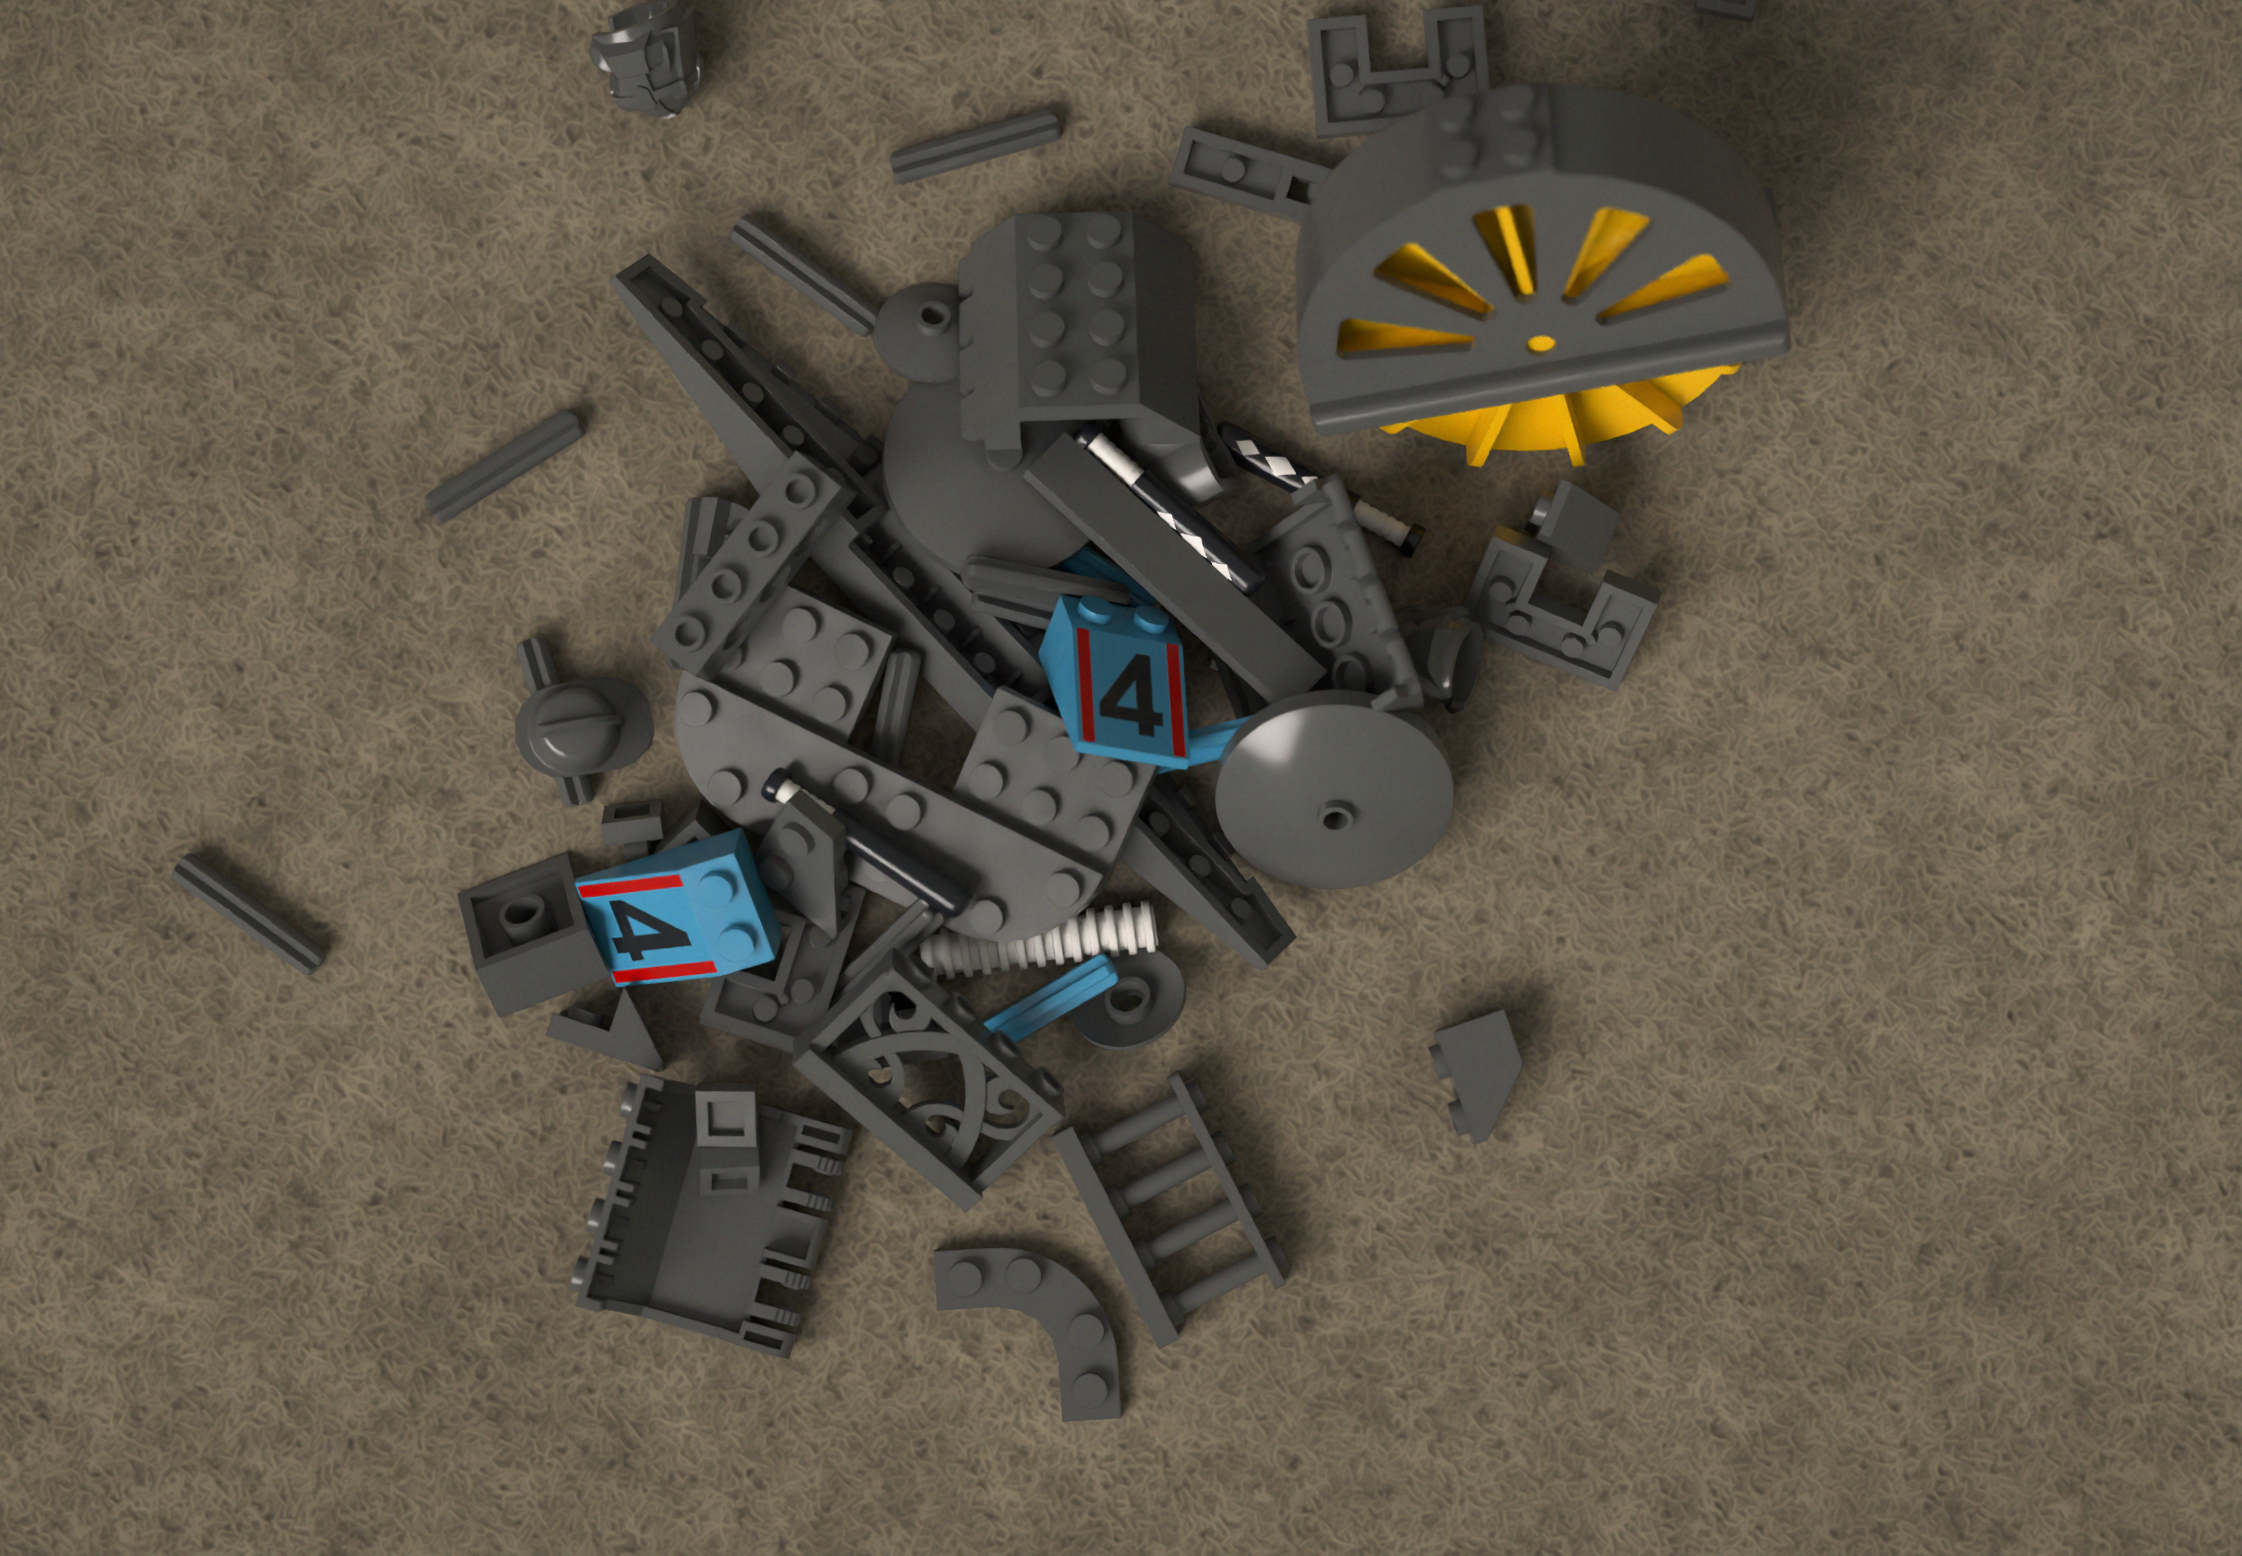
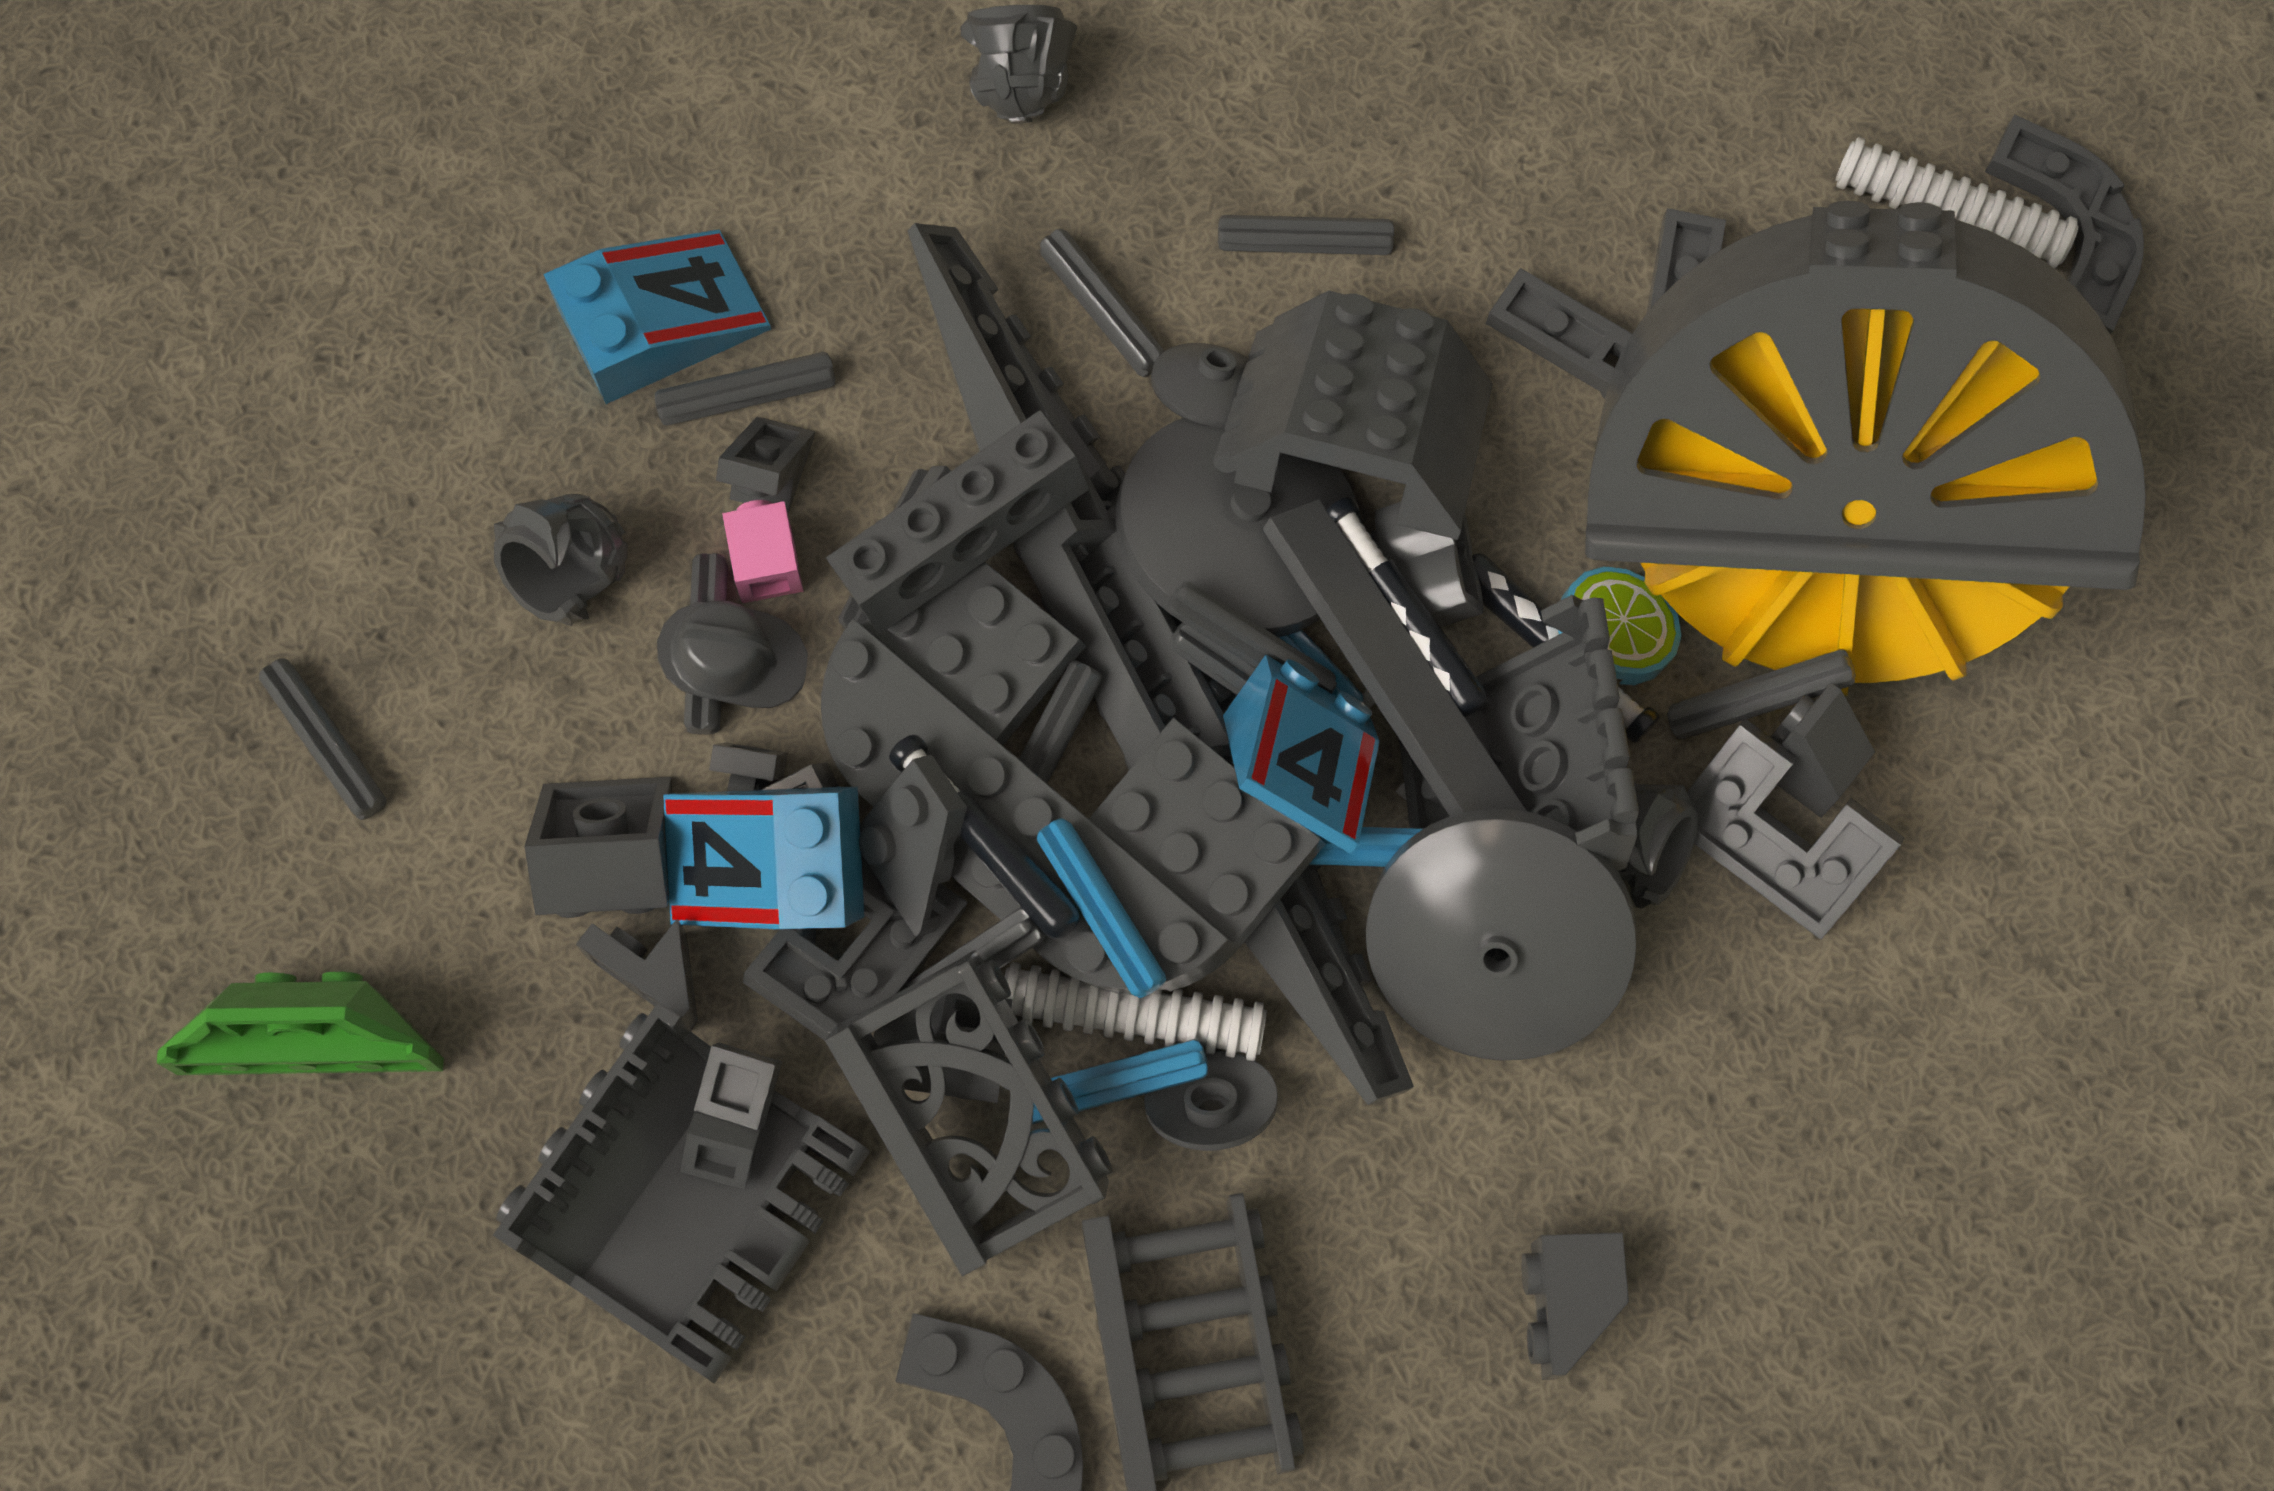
camera: 15 degrees right, 15 degrees down
(337, 1174) = (298, 1029): none -> bright green wedge
(397, 413) = (654, 308): none -> dark azure slope
(401, 687) = (559, 555): none -> dark grey helmet
(551, 534) = (765, 462): none -> dark grey slope
(577, 621) = (762, 551): none -> bright pink brick
(987, 878) = (1101, 908): none -> dark azure axle
(1372, 464) = (1640, 625): none -> lime tile
(1508, 490) = (1760, 694): none -> dark grey axle

